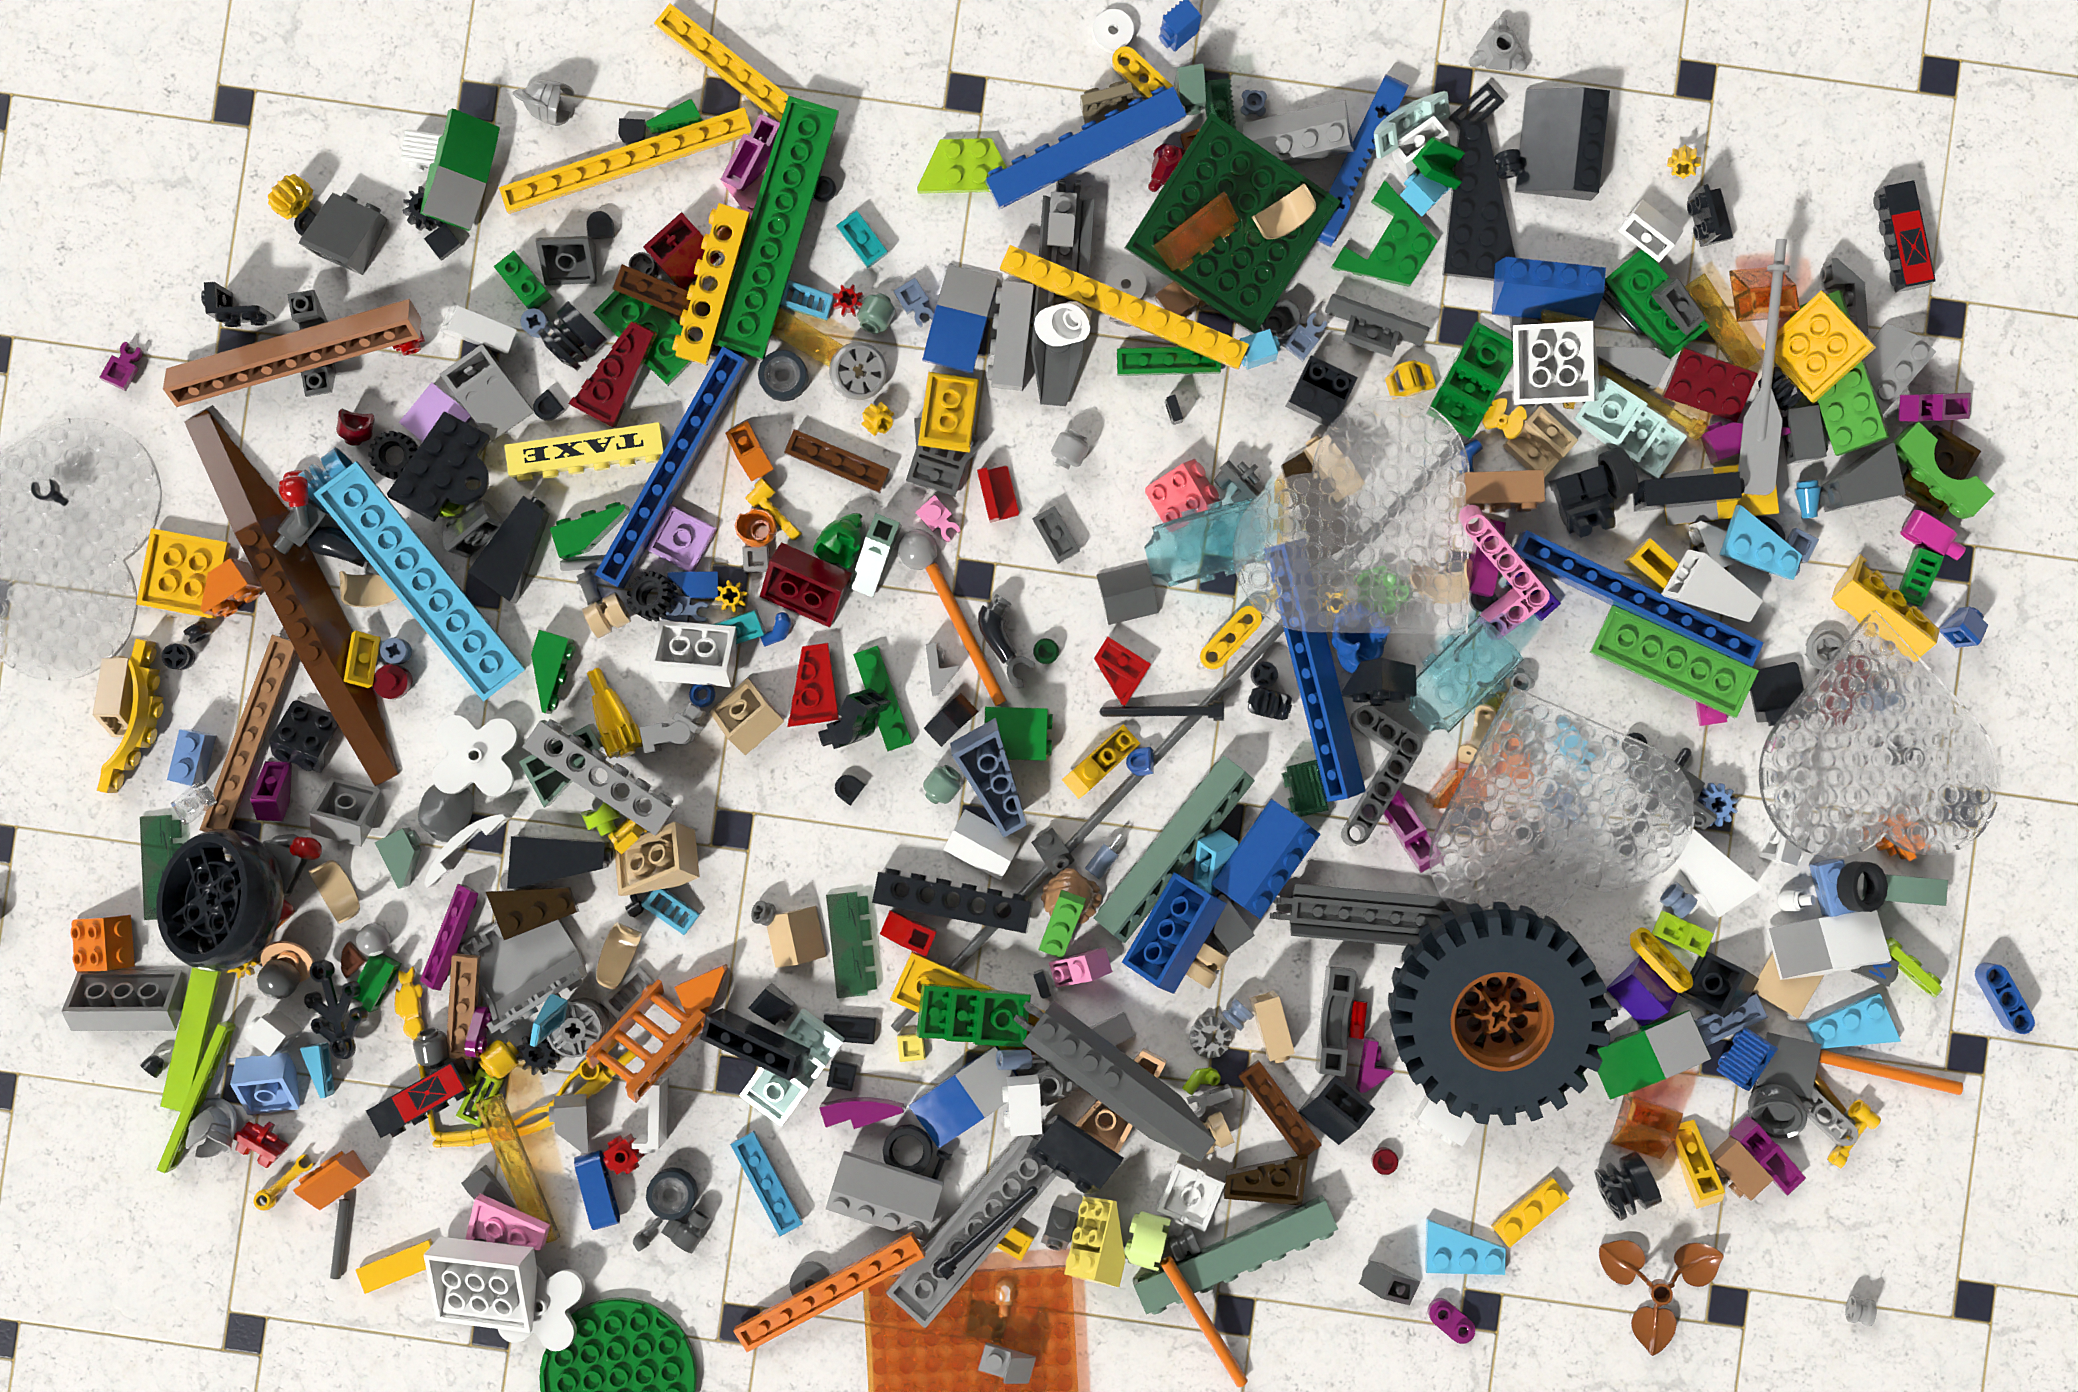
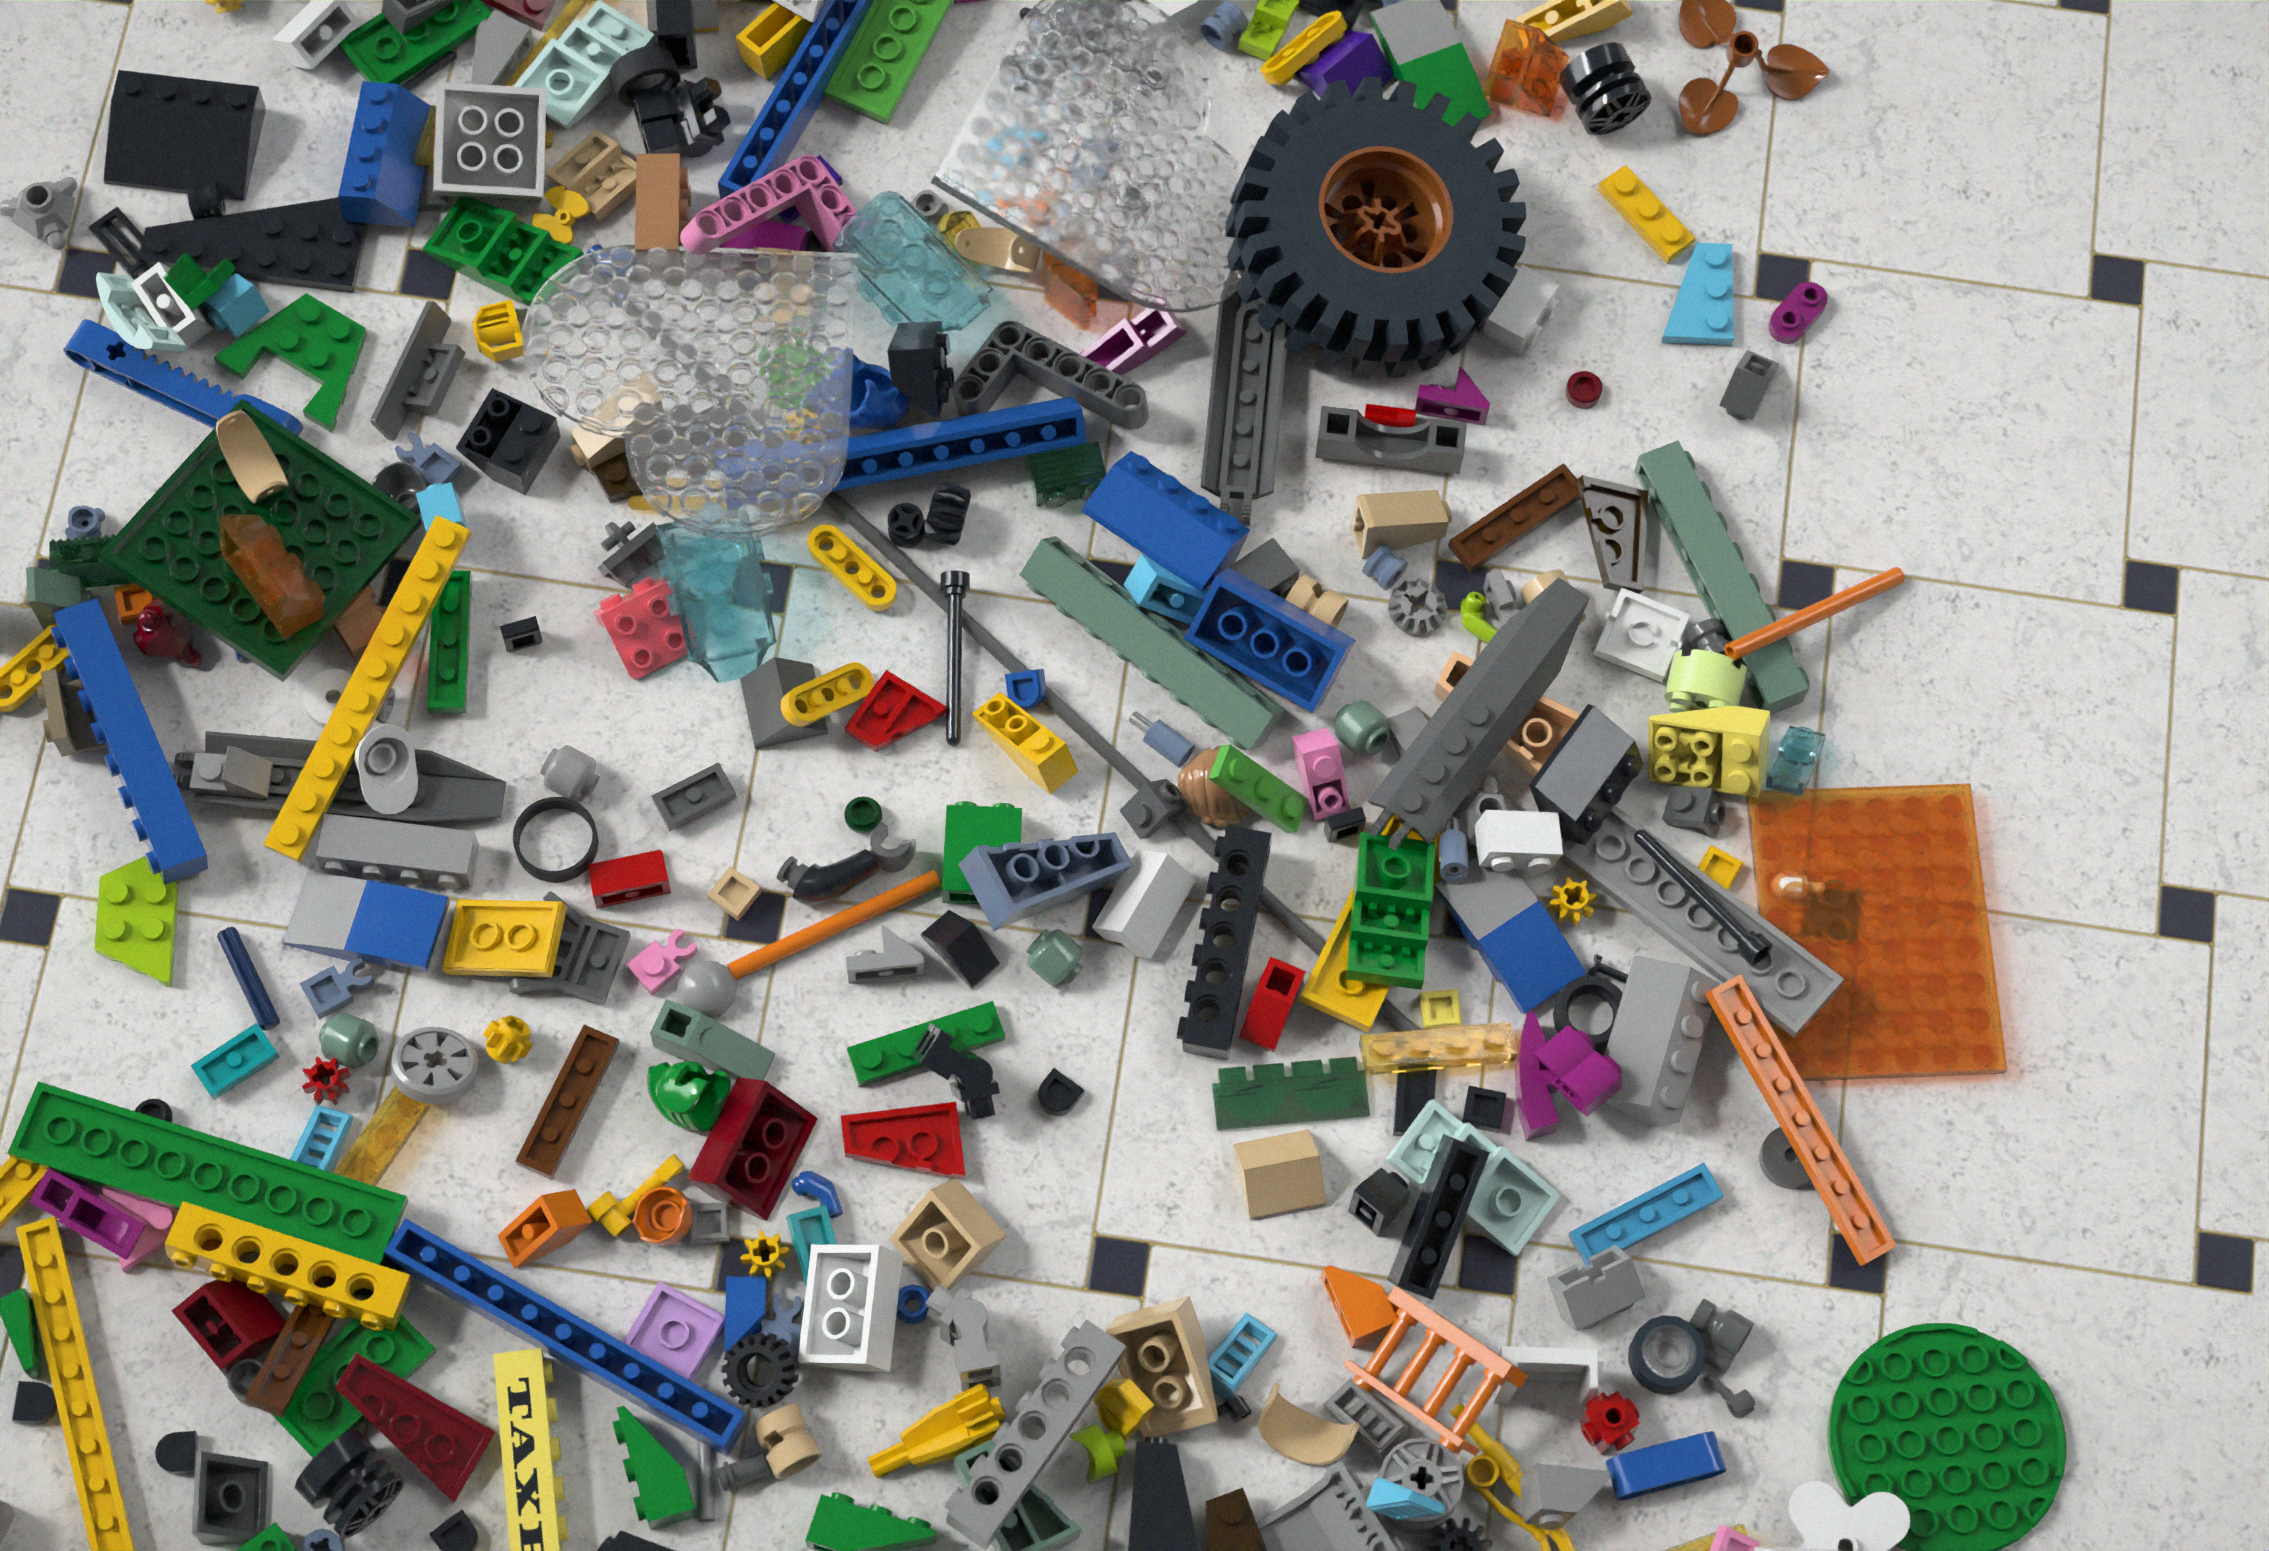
camera: 90 degrees left, 20 degrees down
(712, 1148) = (1597, 1290): none -> light grey brick
(763, 913) = (1239, 1223): dark grey bush -> none
(779, 361) = (428, 1155): wheel -> none
(855, 1142) = (1578, 1070): none -> magenta brick
(881, 1045) = (1438, 1048): none -> clear yellow plate
(921, 243) = (248, 978): none -> dark blue axle
(986, 565) = (734, 893): none -> tan plate
(990, 1147) = (1565, 894): none -> yellow gear
(1007, 1363) = (1889, 878): light grey slope -> none
(1028, 416) = (548, 804): none -> black tyre
(1096, 1301) = (1795, 760): none -> clear light blue slope
(1114, 996) = (1362, 728): none -> sand green head
(1131, 631) = (834, 686): none -> yellow plate
(1304, 133) = (136, 444): light grey slope -> none
(1336, 1109) = (1513, 441): black slope -> none

